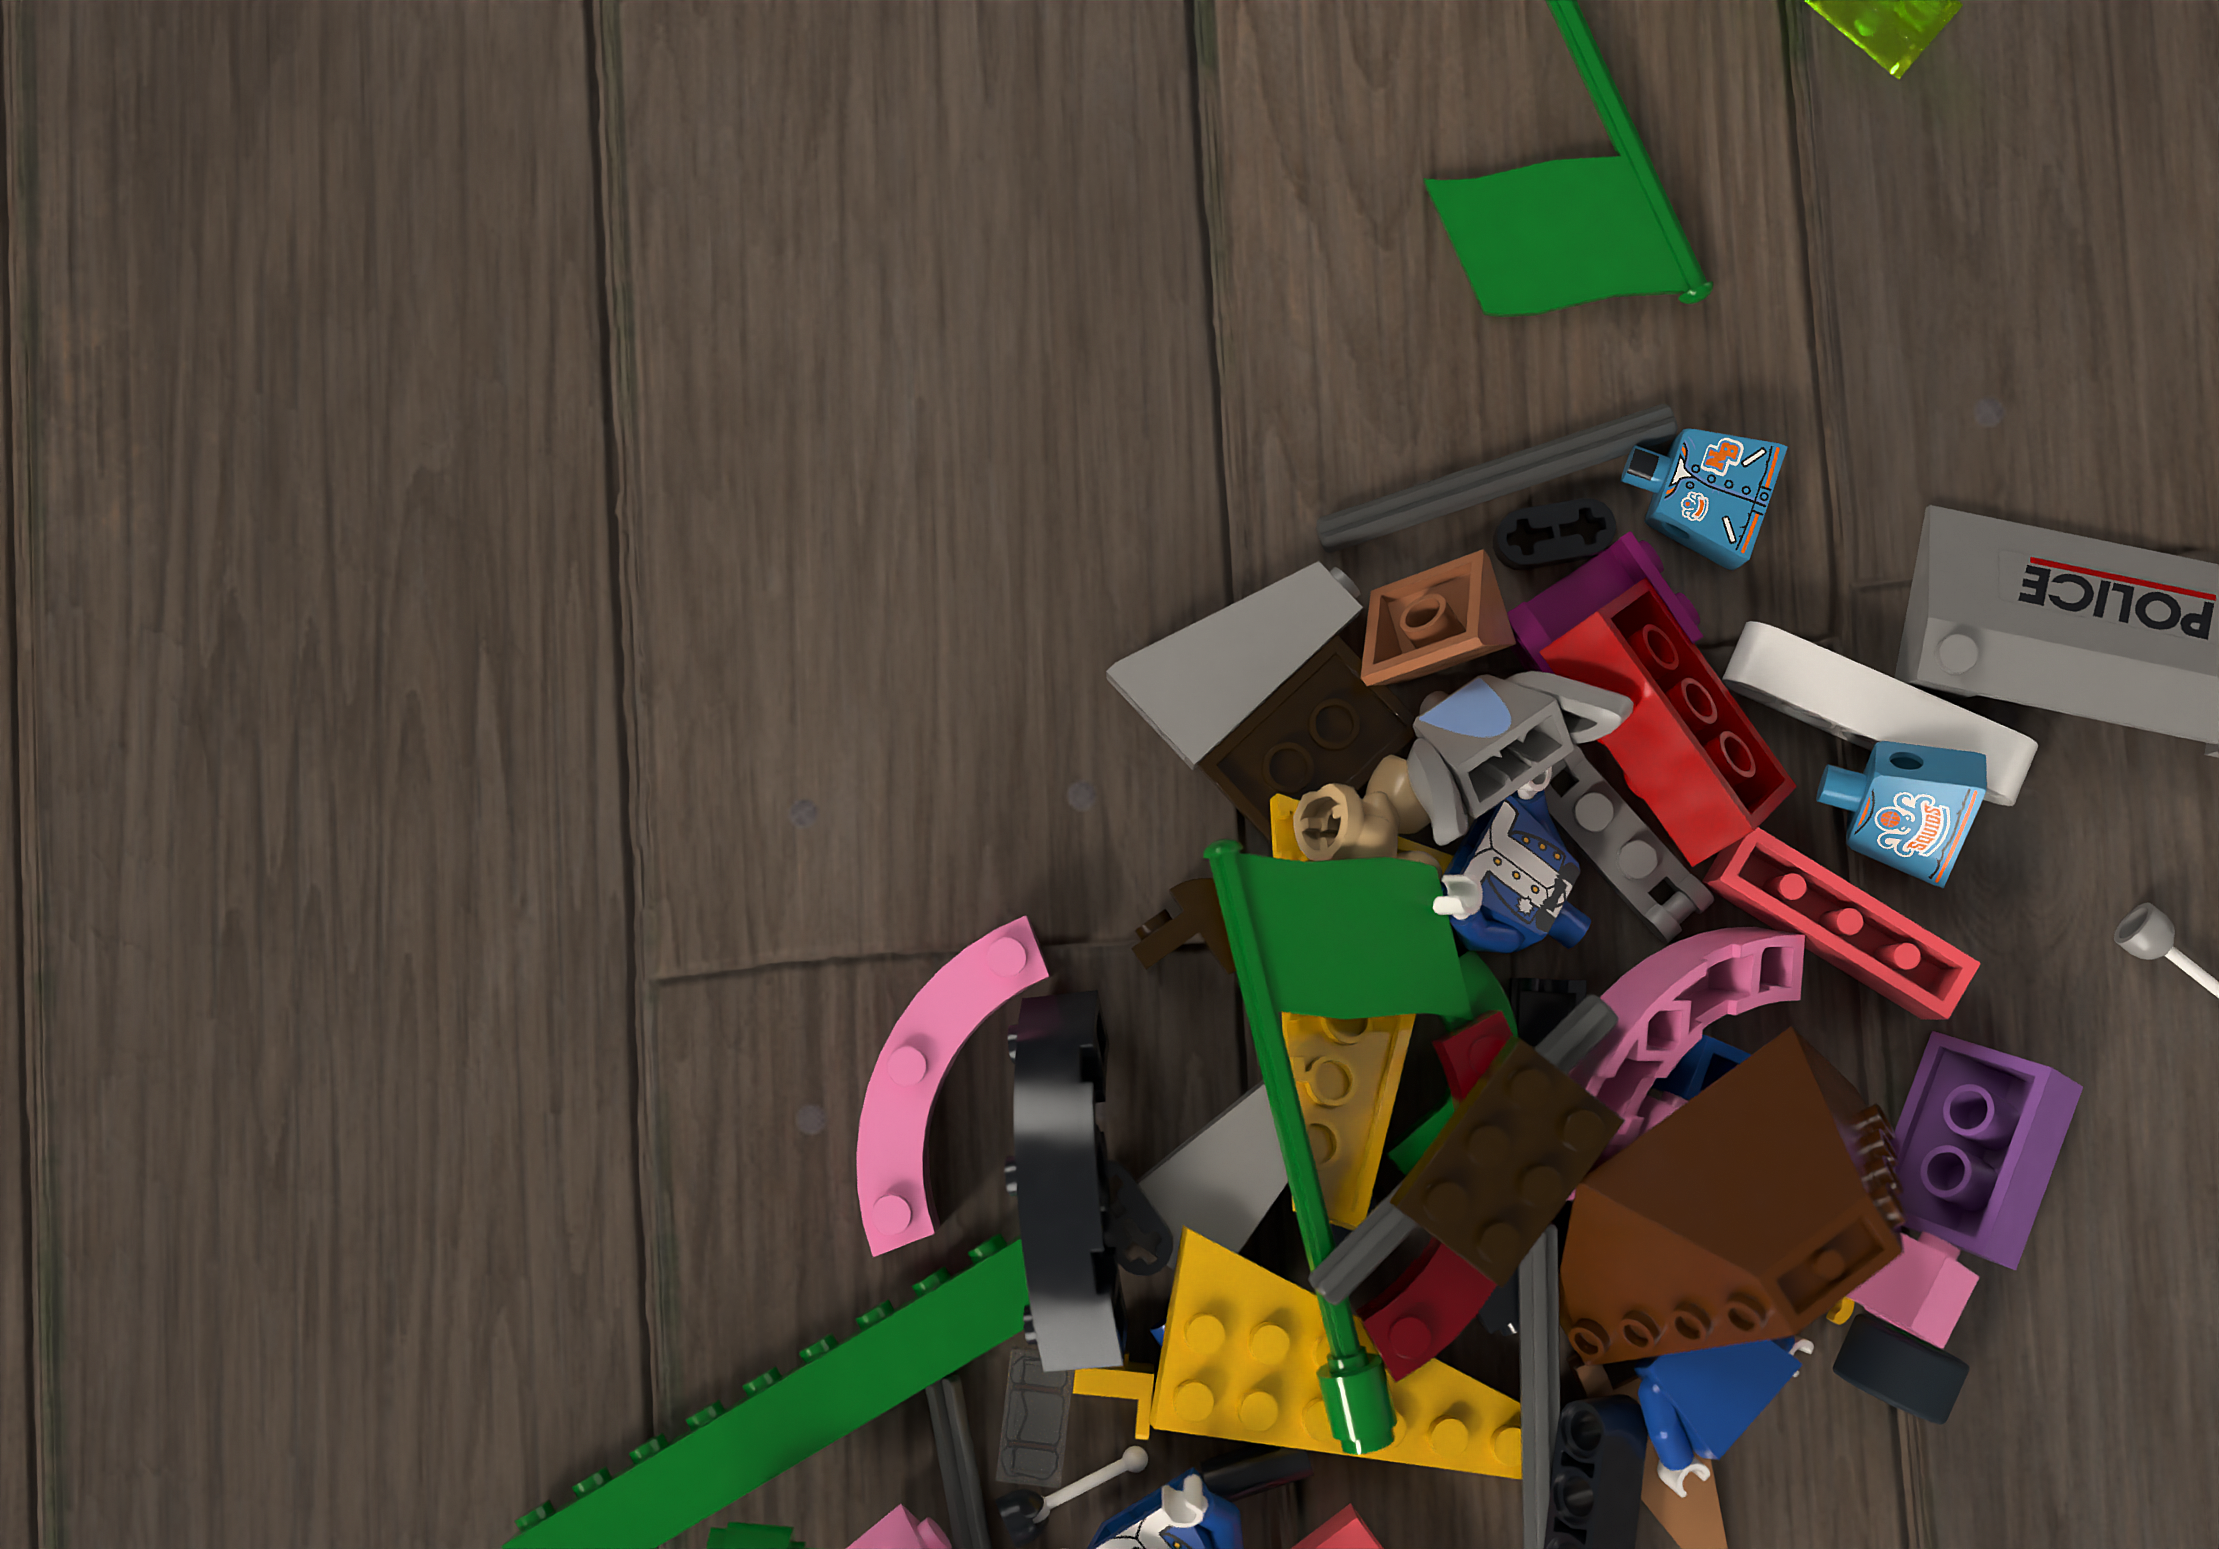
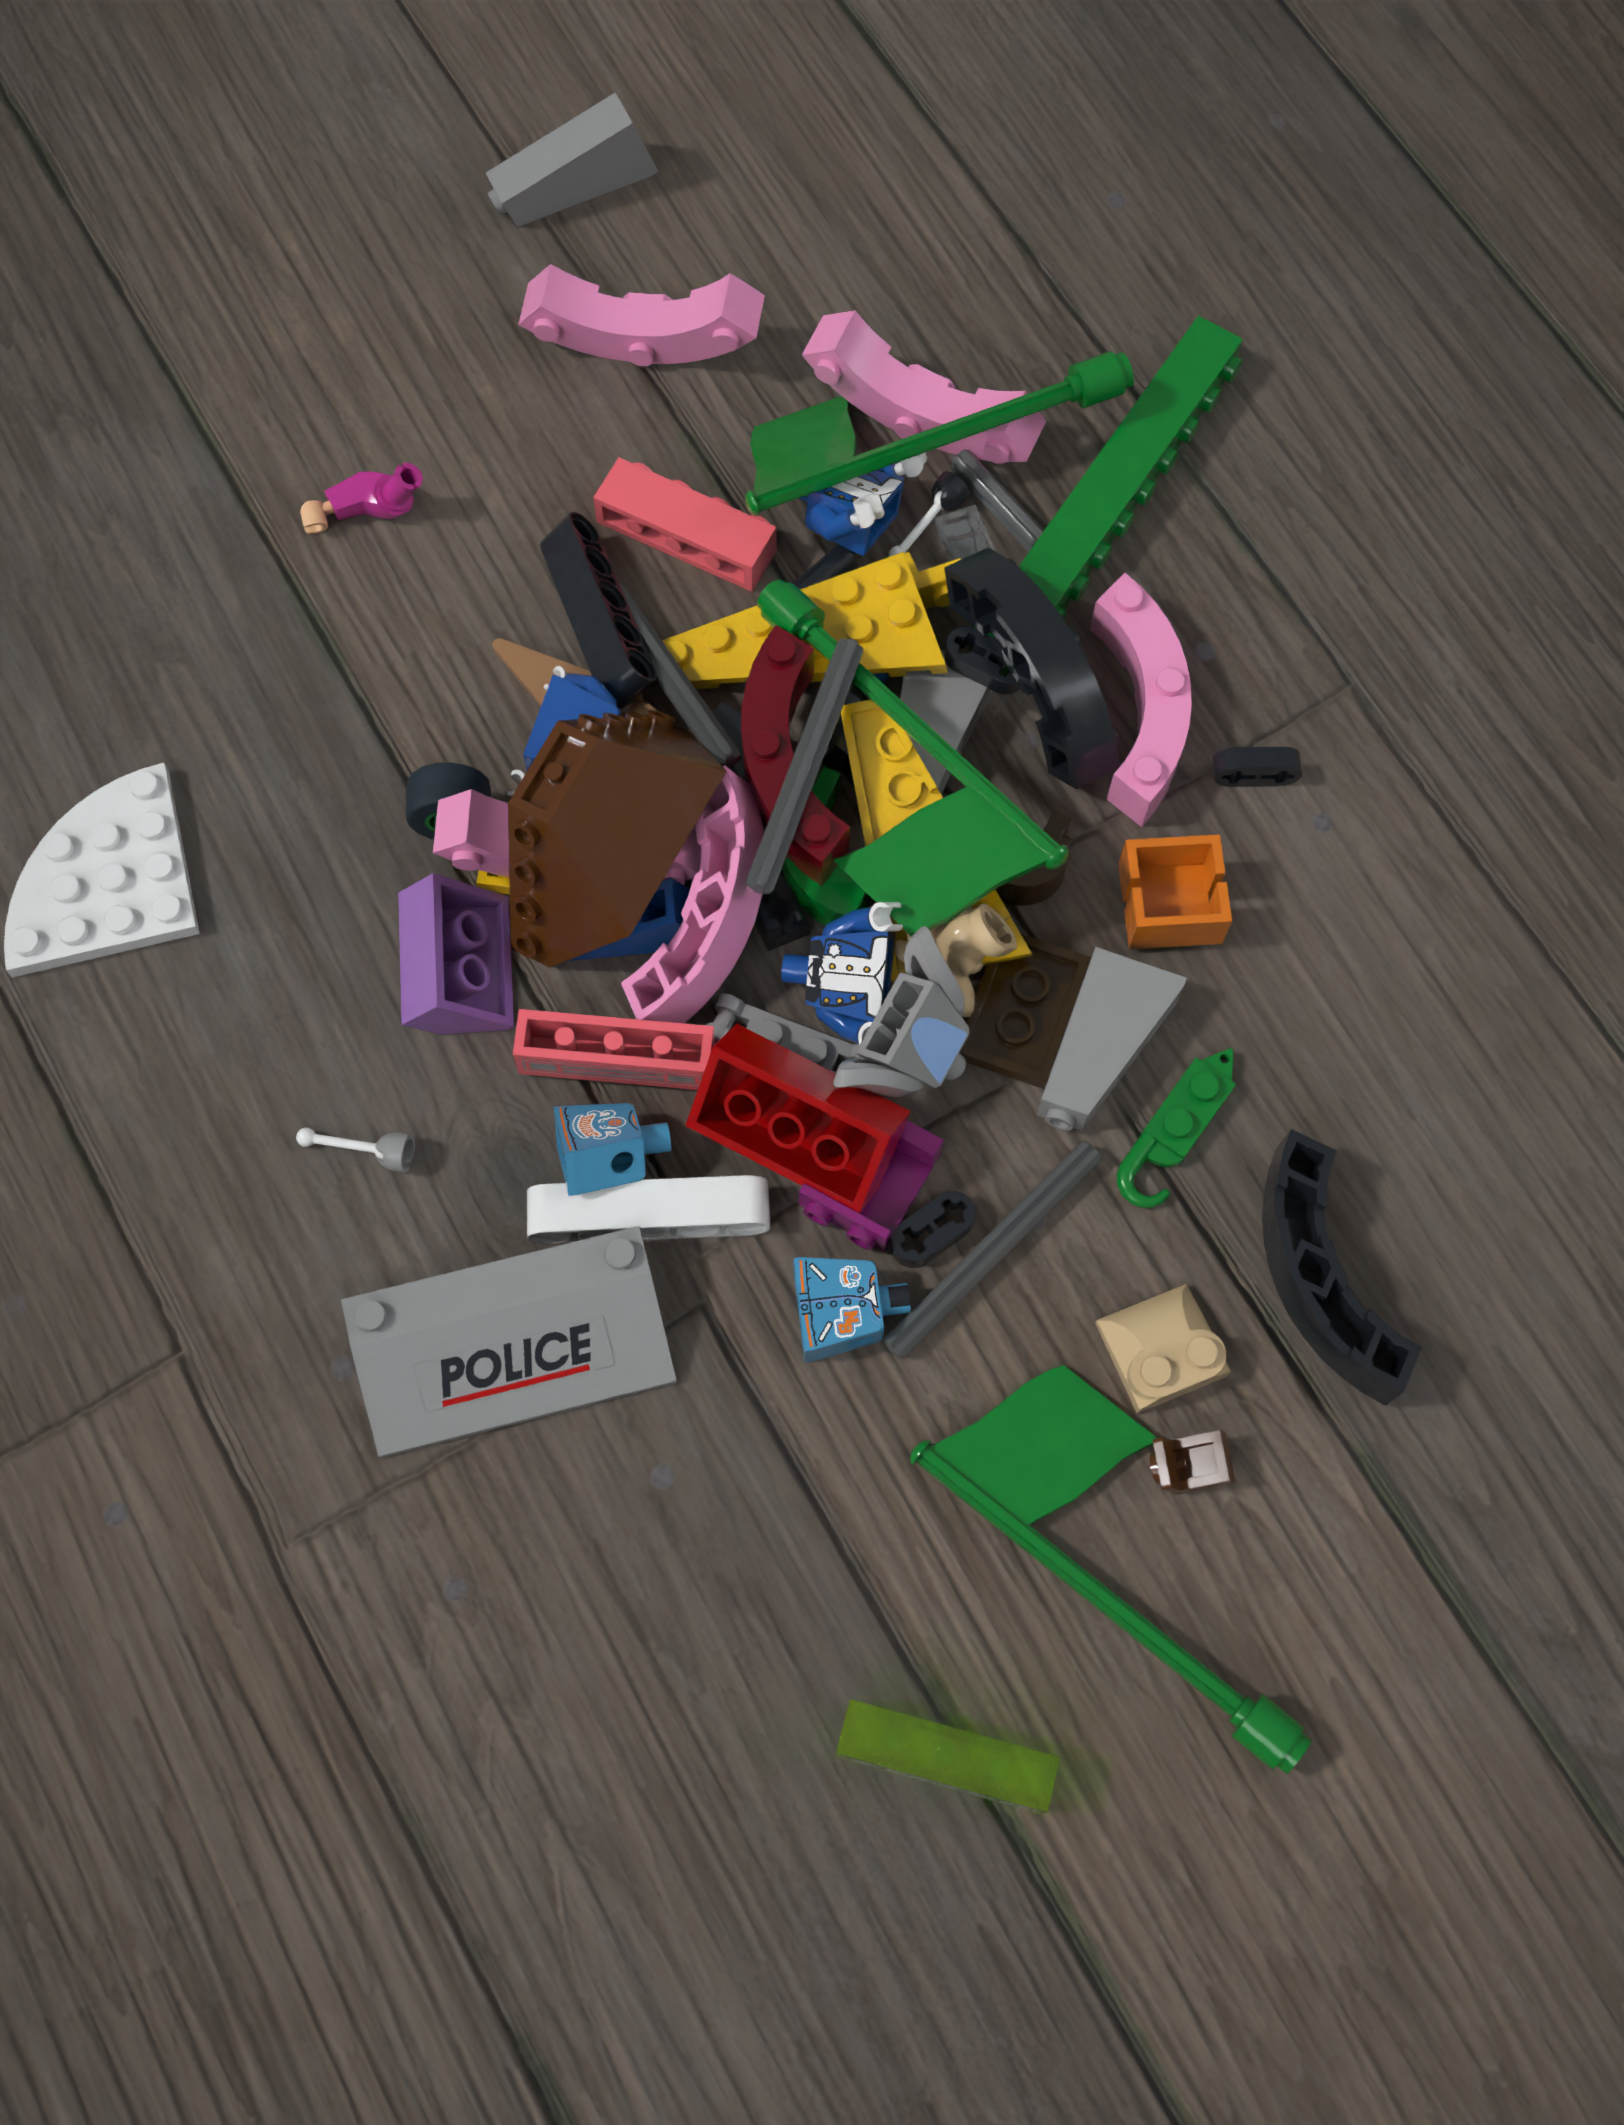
camera: 145 degrees right, 15 degrees down
(848, 916) = (1257, 766): none -> black beam
(1055, 790) = (1170, 889): none -> orange piece
(1166, 265) = (1313, 1281): none -> black brick
(1200, 521) = (1178, 1124): none -> green plate
(1364, 274) = (1163, 1348): none -> tan slope
(1408, 132) = (1192, 1462): none -> bracket
(1434, 621) = (986, 1111): nougat slope -> none
(1507, 1161) = (778, 761): dark brown plate -> none

